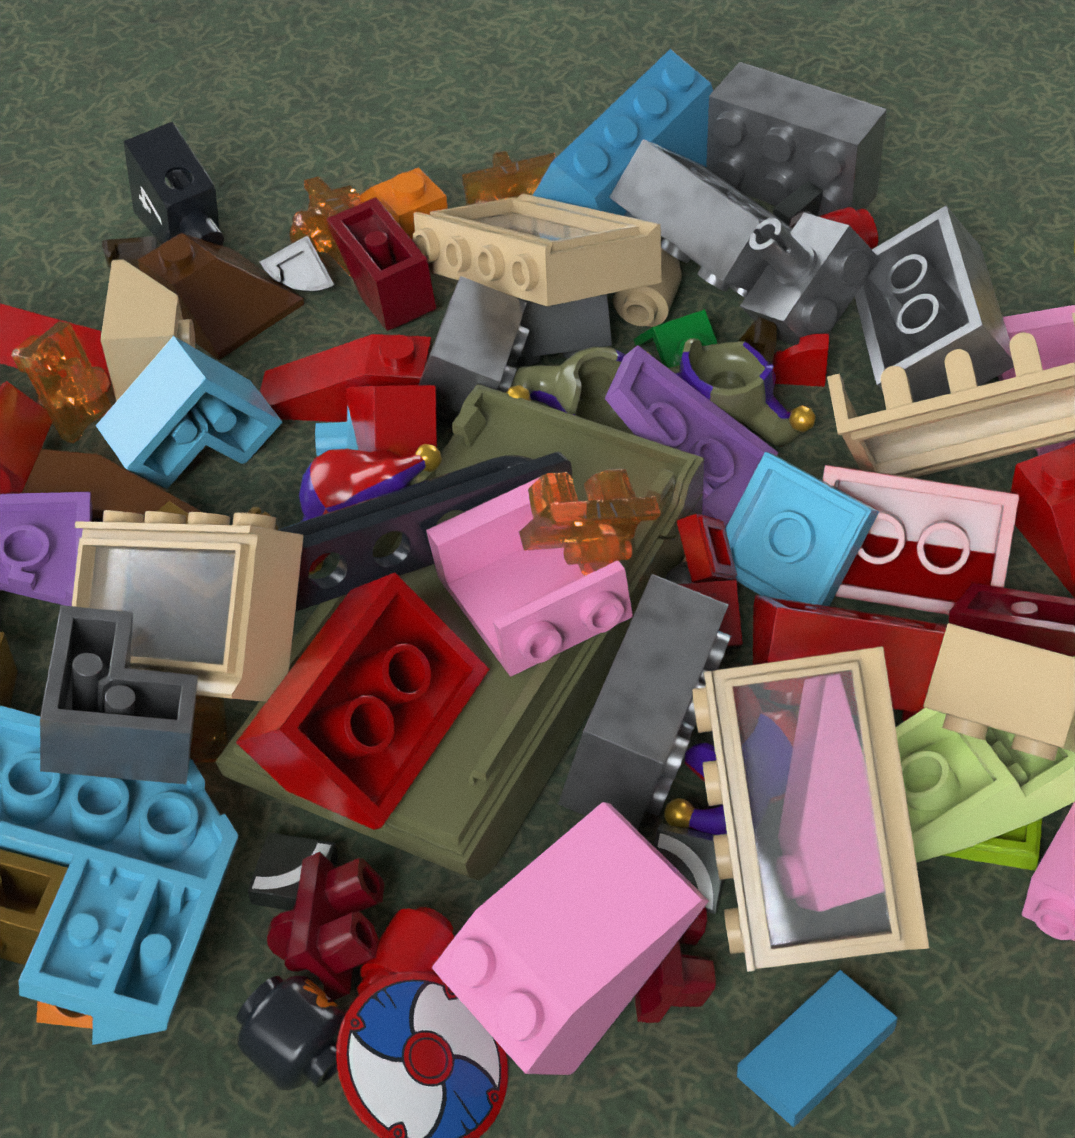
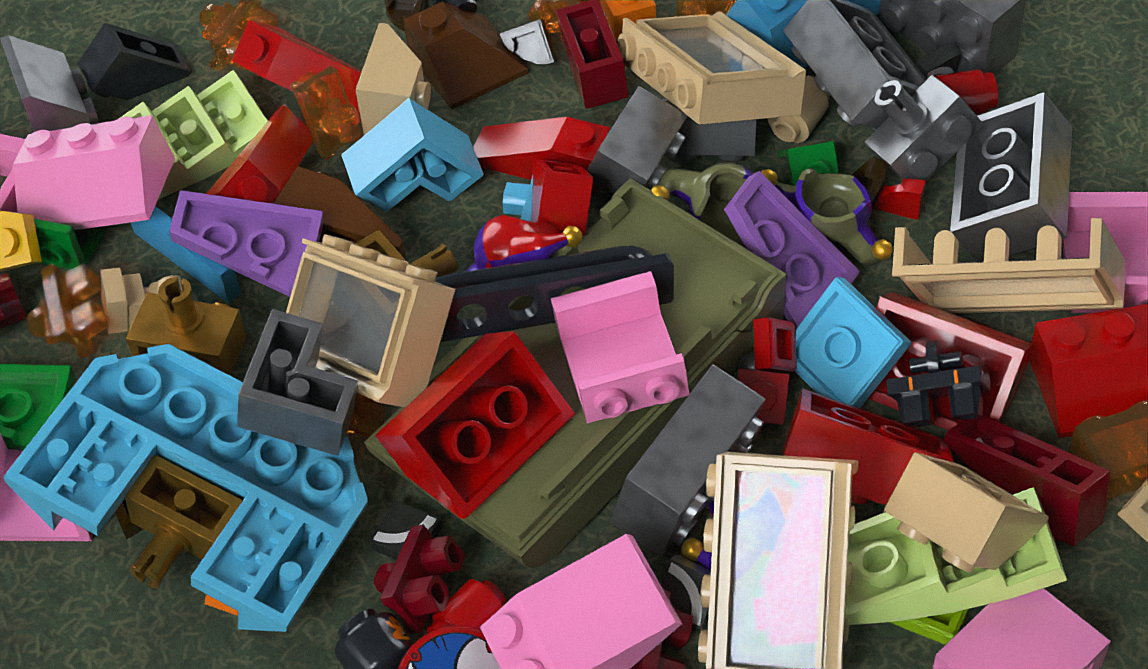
camera: 15 degrees right, 5 degrees up
(590, 530) = (691, 314): clear orange hips -> none
(954, 549) = (961, 385): none -> black hips

